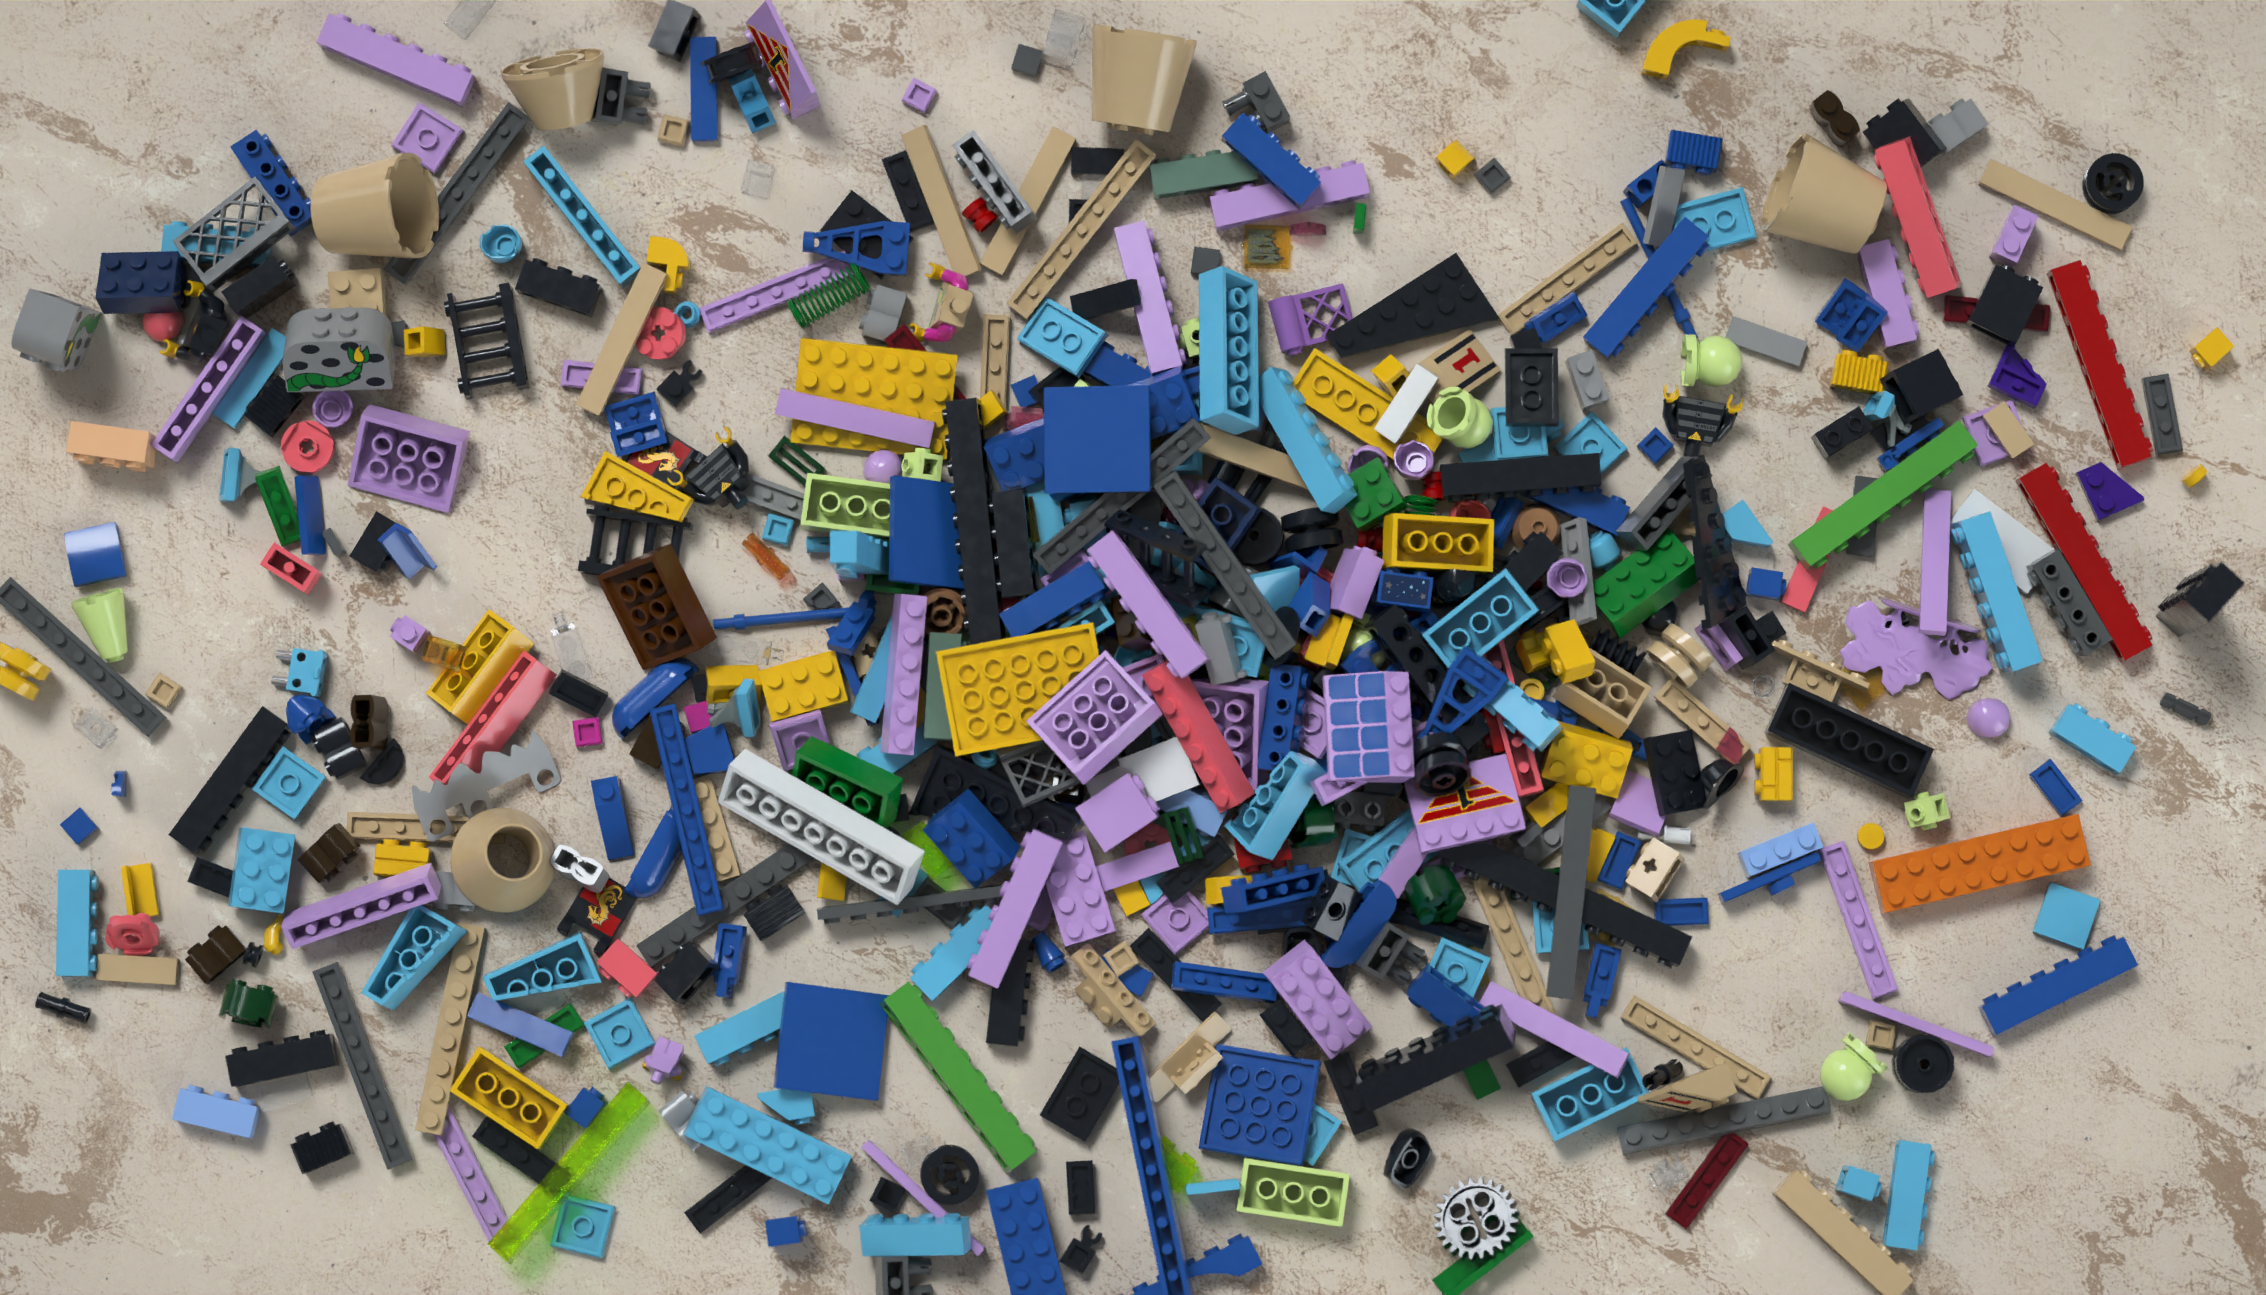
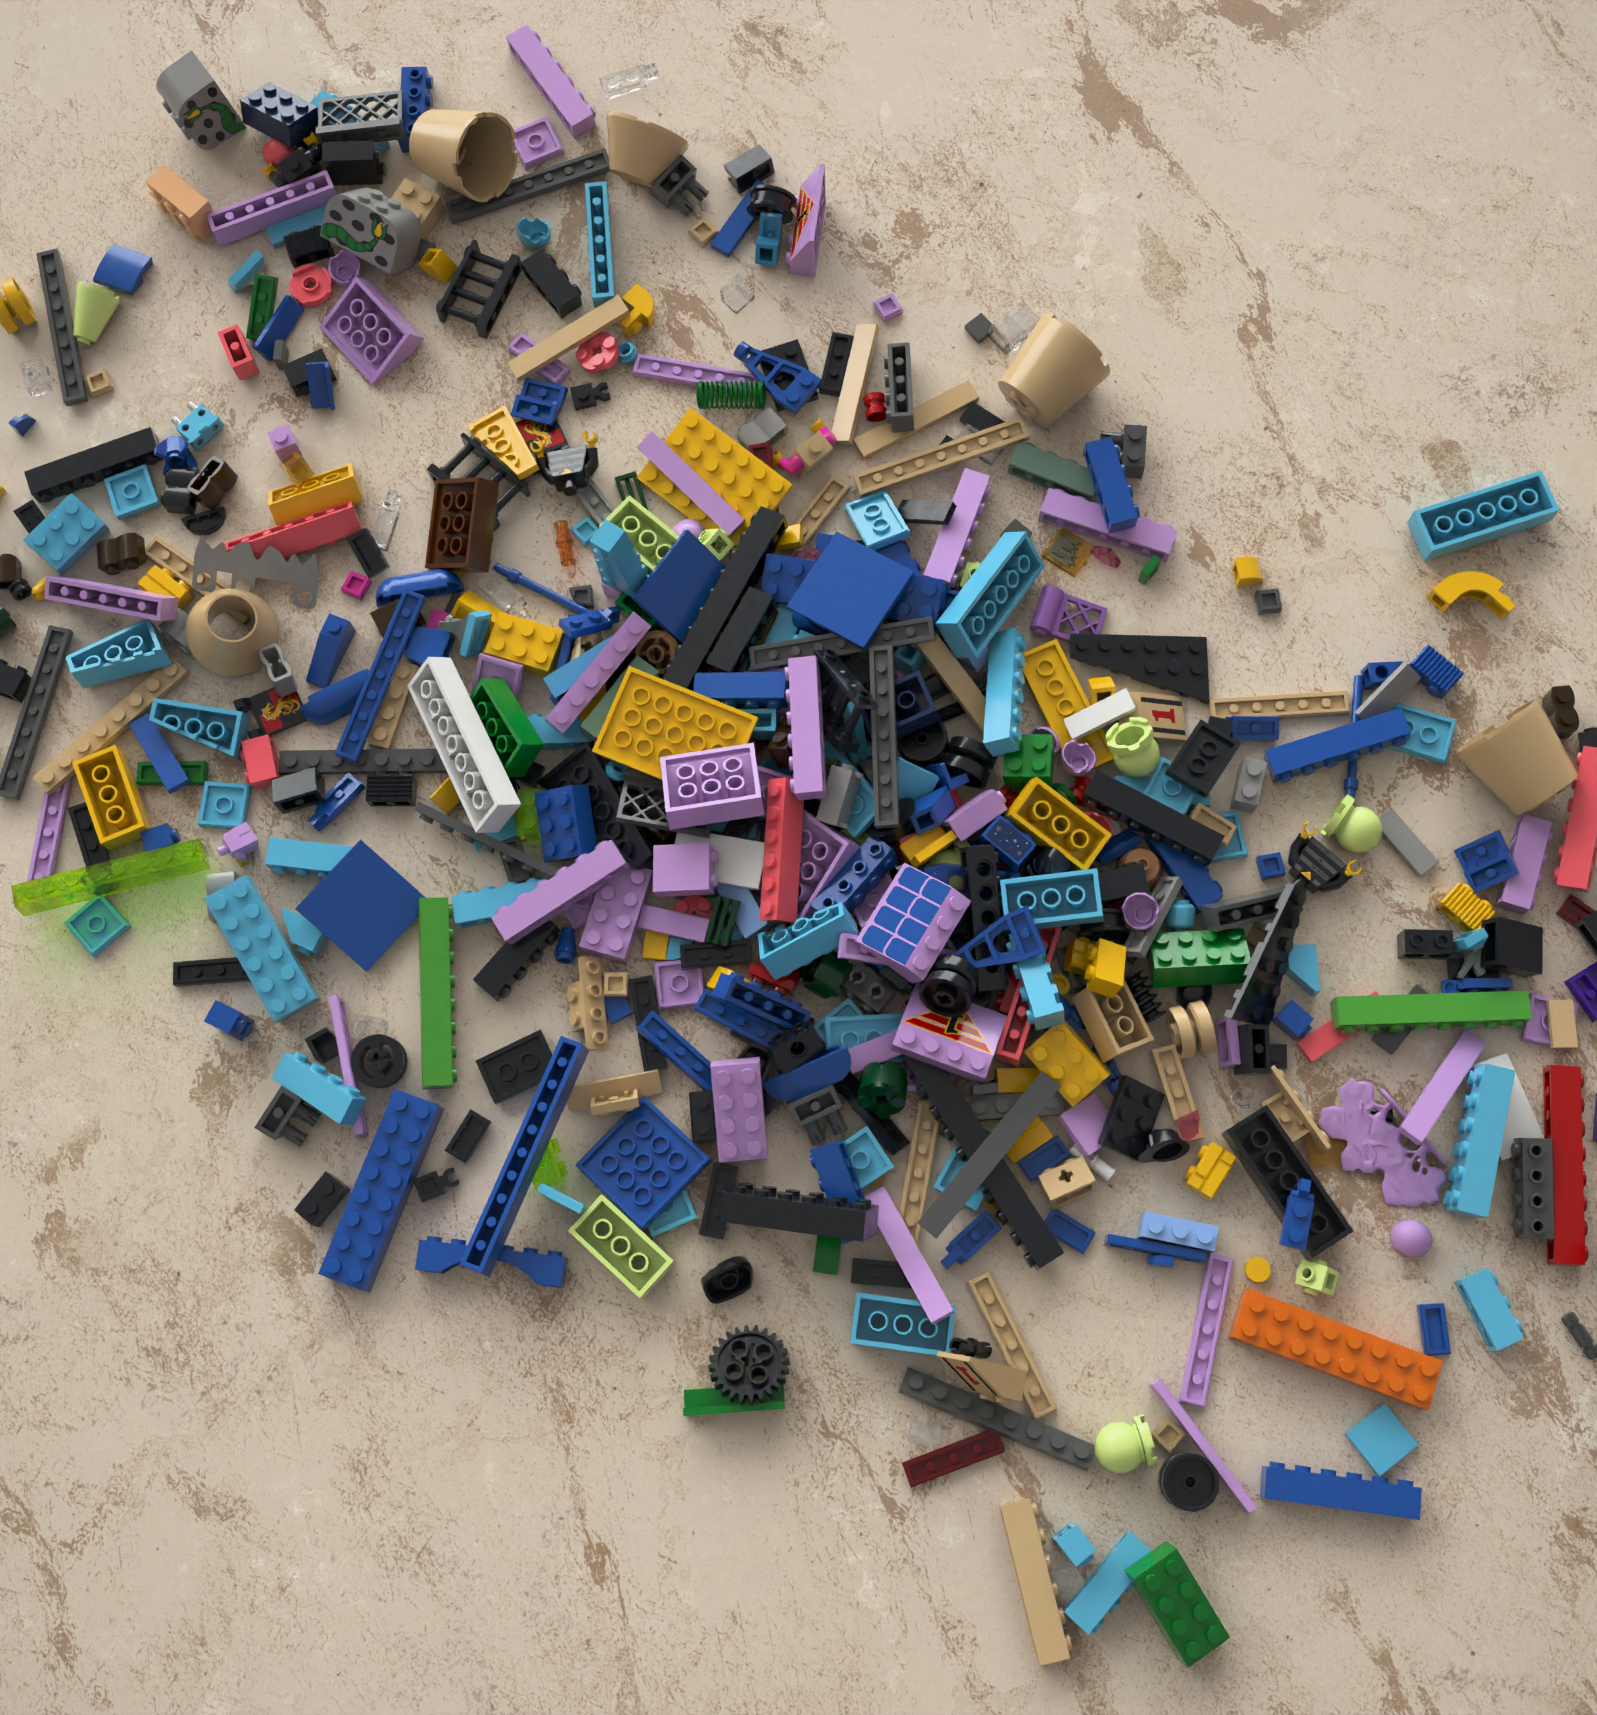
camera: 40 degrees right, 10 degrees down
(1577, 442) = (1214, 821): none -> tan tile
(1877, 769) = (1297, 1217): none -> blue hinge
(1975, 1174) = (1177, 1604): none -> green brick

